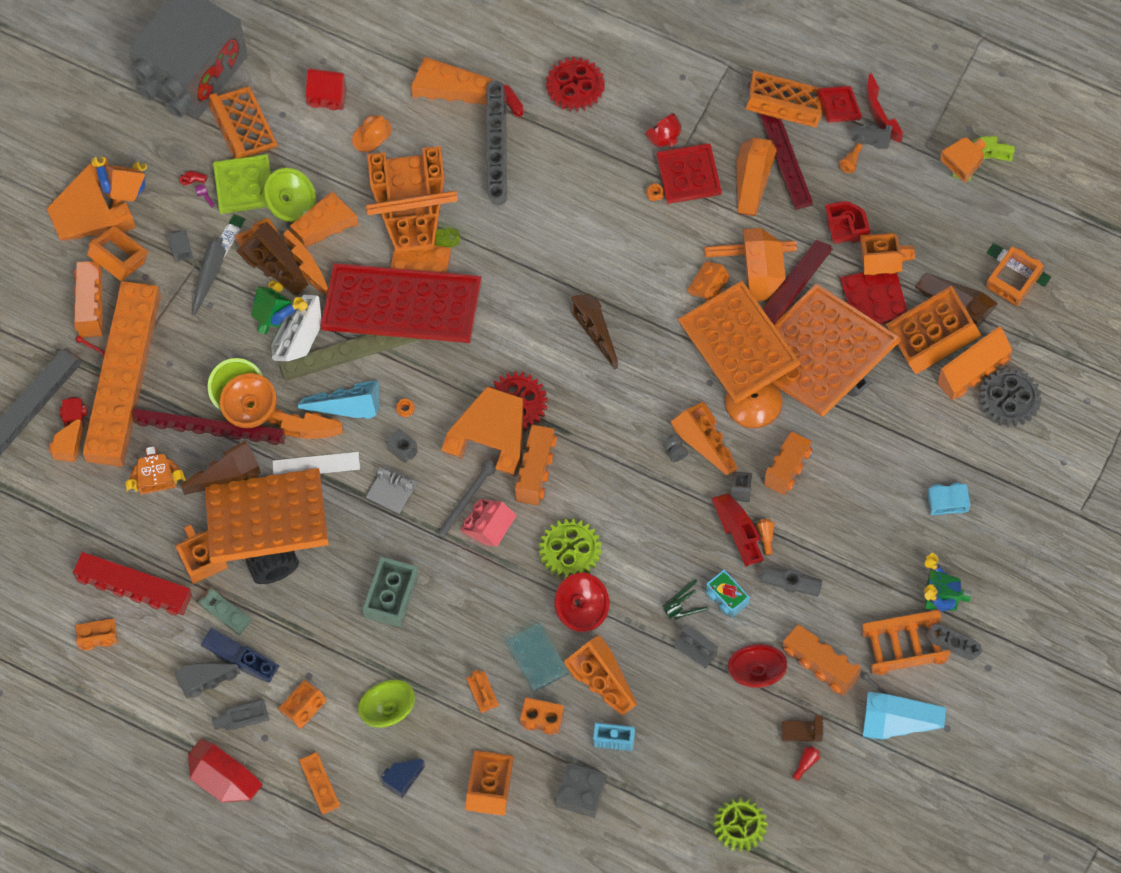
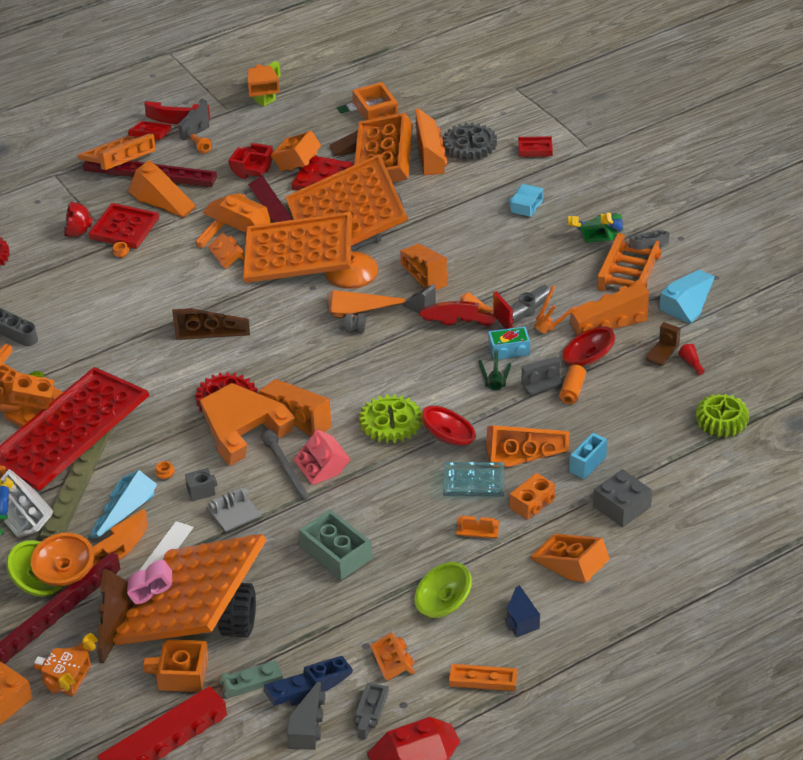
camera: 60 degrees left, 25 degrees down
(259, 480) = (151, 581): none -> bright pink brick
(409, 253) = (32, 391): none -> orange brick
(704, 676) = (572, 384): none -> orange brick
(760, 567) = (502, 311): none -> red piece
(775, 609) = (544, 322): none -> orange plant
(1042, 462) = (535, 146): none -> red plate

